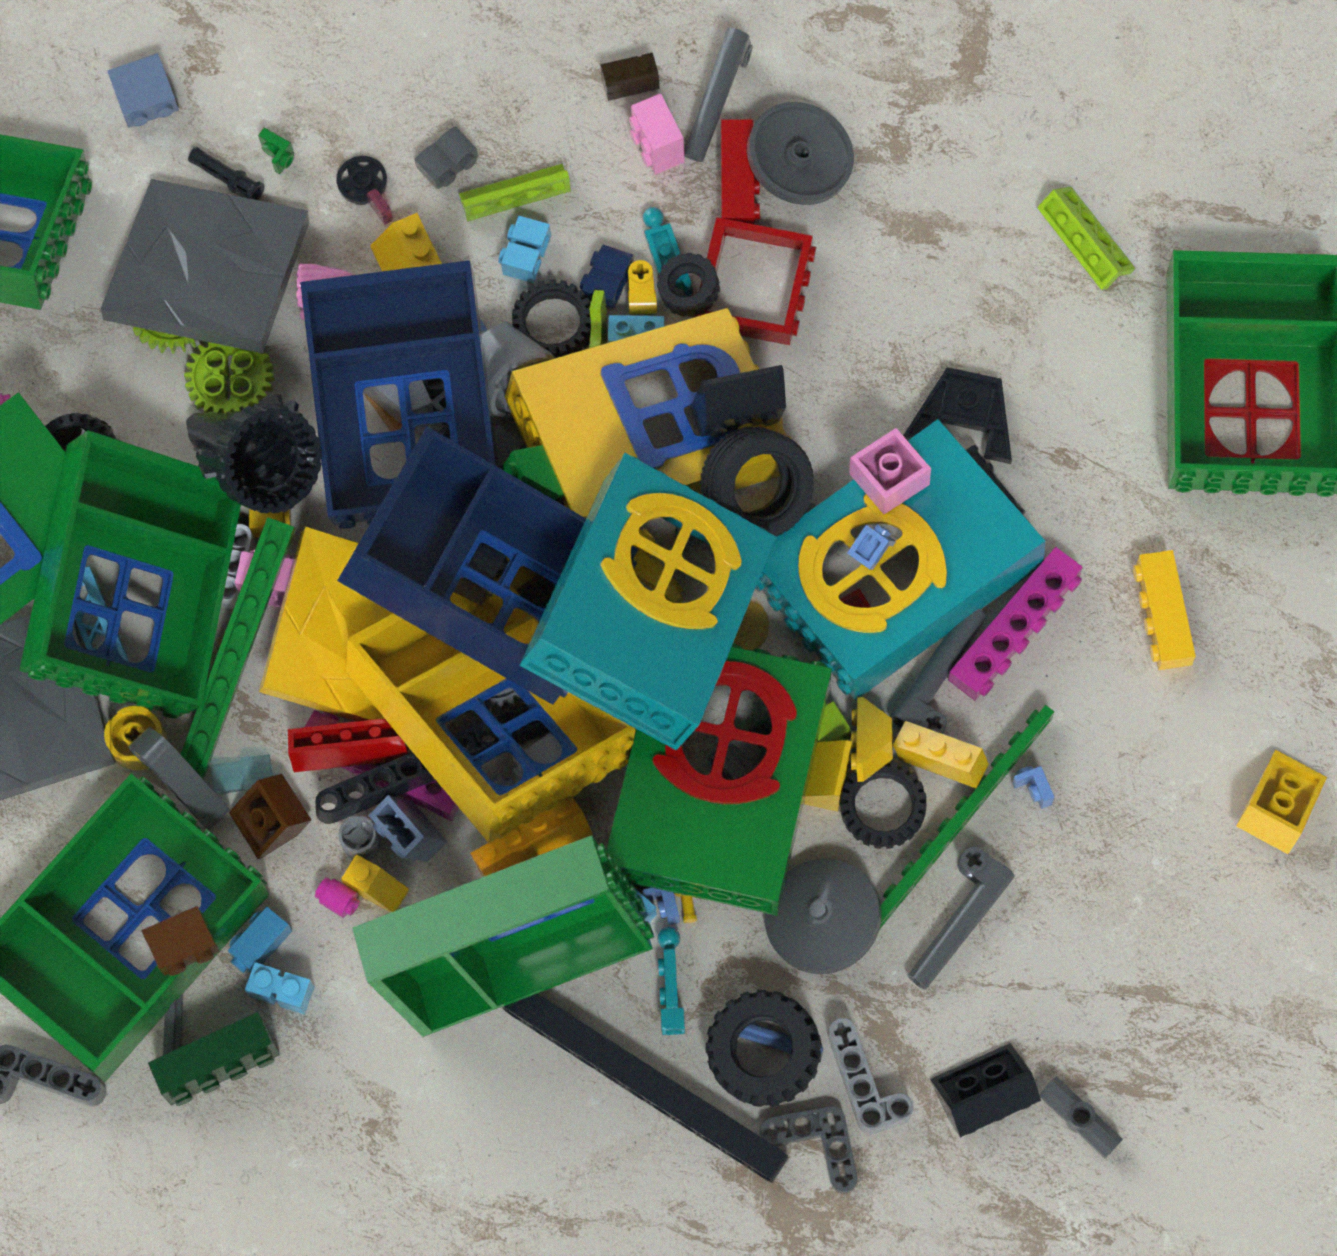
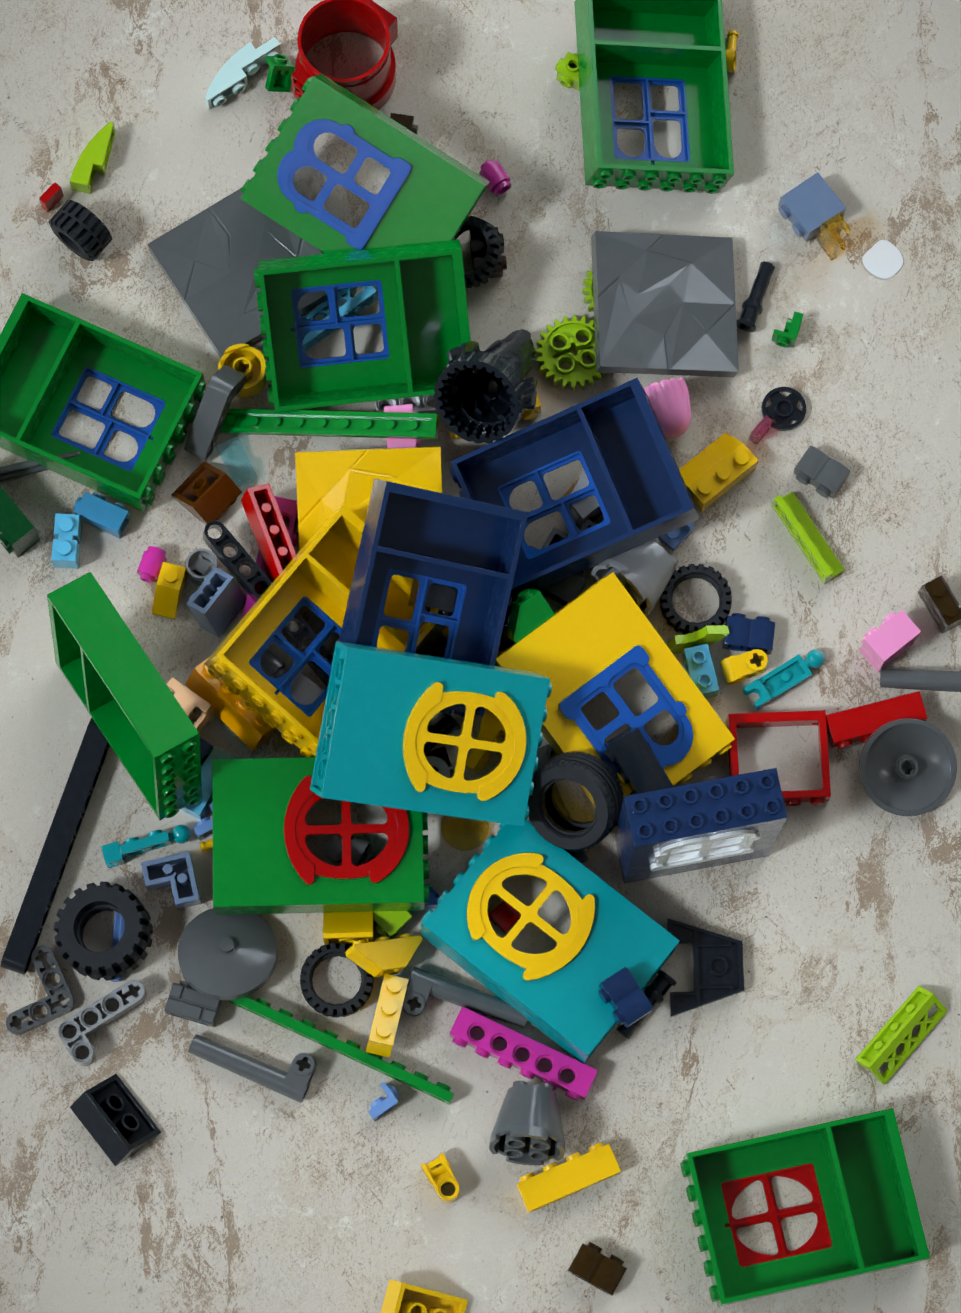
camera: 70 degrees right, 5 degrees up
(181, 941) = (68, 450): reddish brown slope -> none
(186, 76) = (830, 237): none -> clear yellow hinge
(224, 40) = (883, 260): none -> white sticker
(527, 243) = (743, 559): medium azure piece -> none
(694, 304) = (748, 720): black tyre -> none
(717, 948) = (174, 872): none -> sand blue brick
(830, 344) = (699, 825): none -> dark blue panel
(871, 545) = (543, 909): medium blue bracket -> none
(872, 971) = (191, 1005): none -> dark grey brick
(890, 471) = (613, 908): bright pink brick -> none
(991, 484) = (625, 997): none -> dark blue brick
(1095, 1131) = (100, 1217): dark grey piece -> none
(1100, 631) = (529, 1125): none -> dark grey cone
(1132, 743) = (441, 1176): none -> yellow piece
(1271, 604) = (597, 1269): none -> dark brown brick

